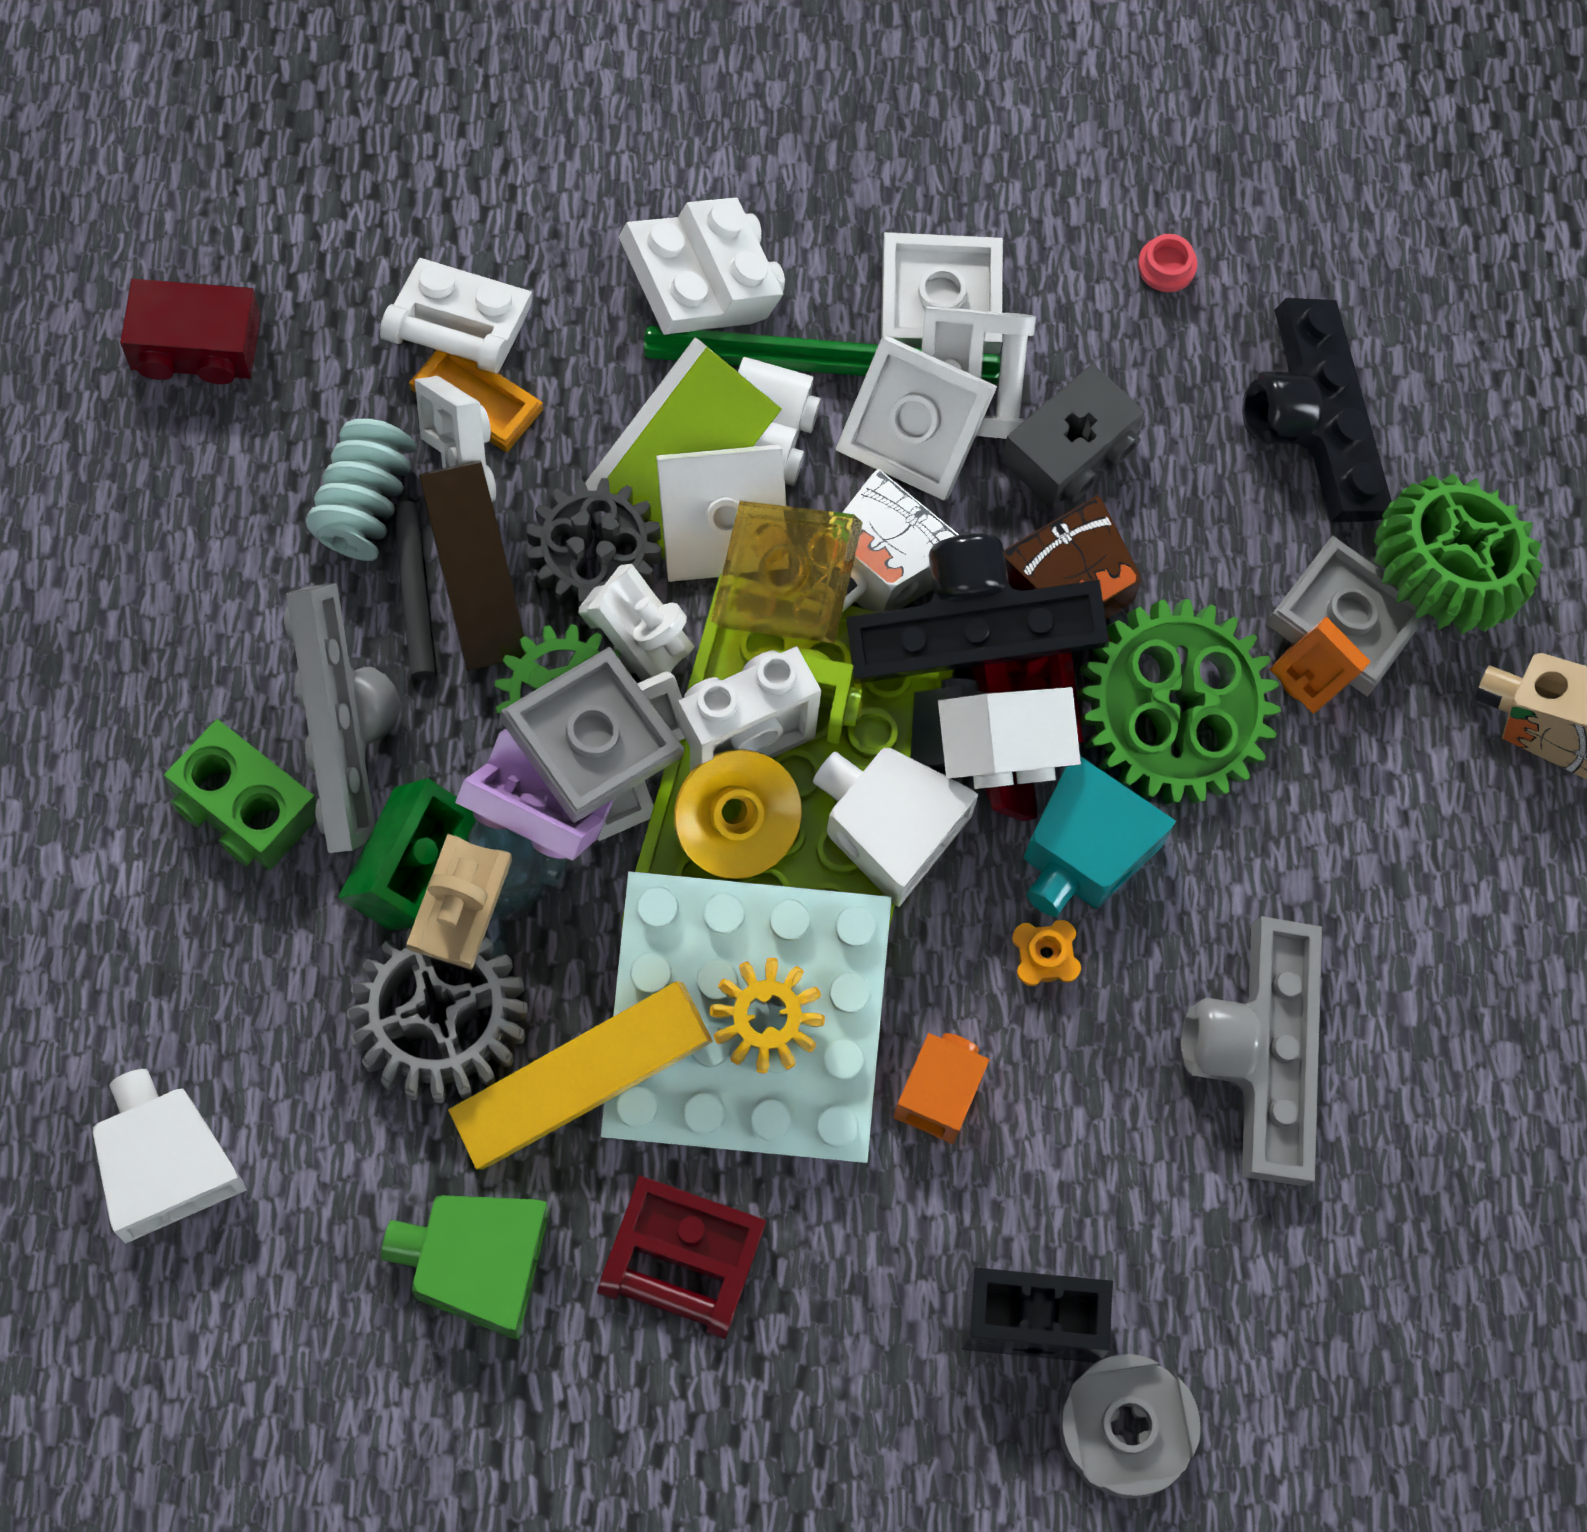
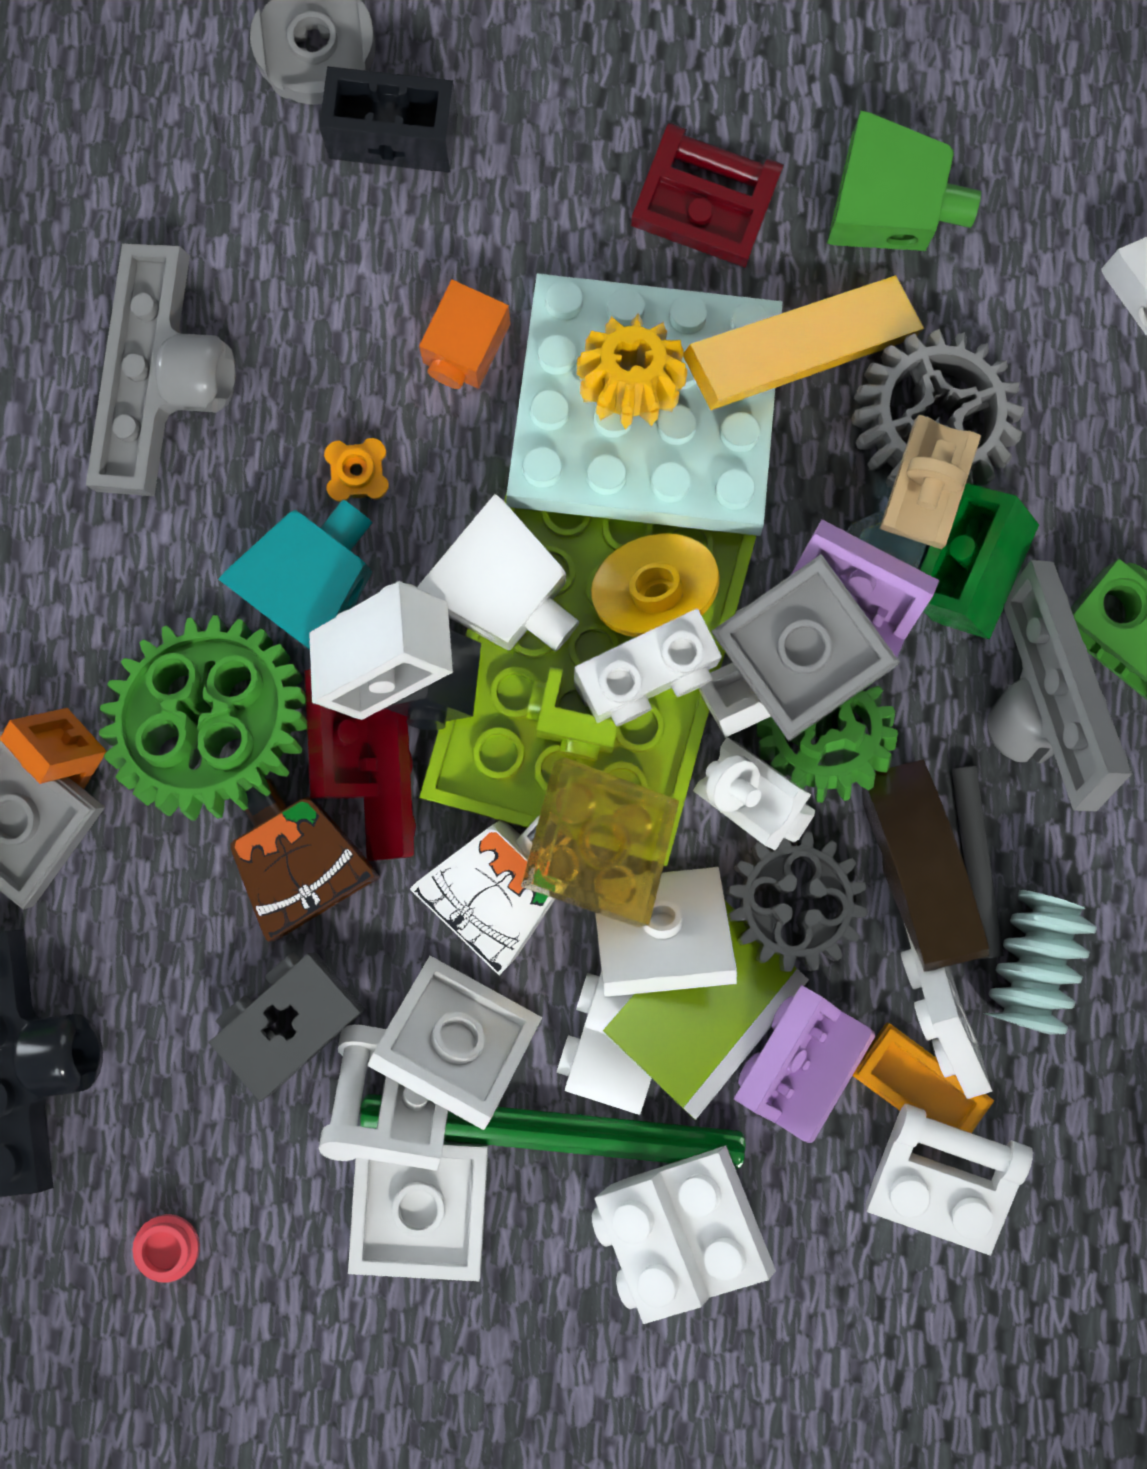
camera: 175 degrees left, 15 degrees up
(587, 403) = (804, 1064): none -> lavender bracket
(975, 618) = (405, 788): black plate -> none

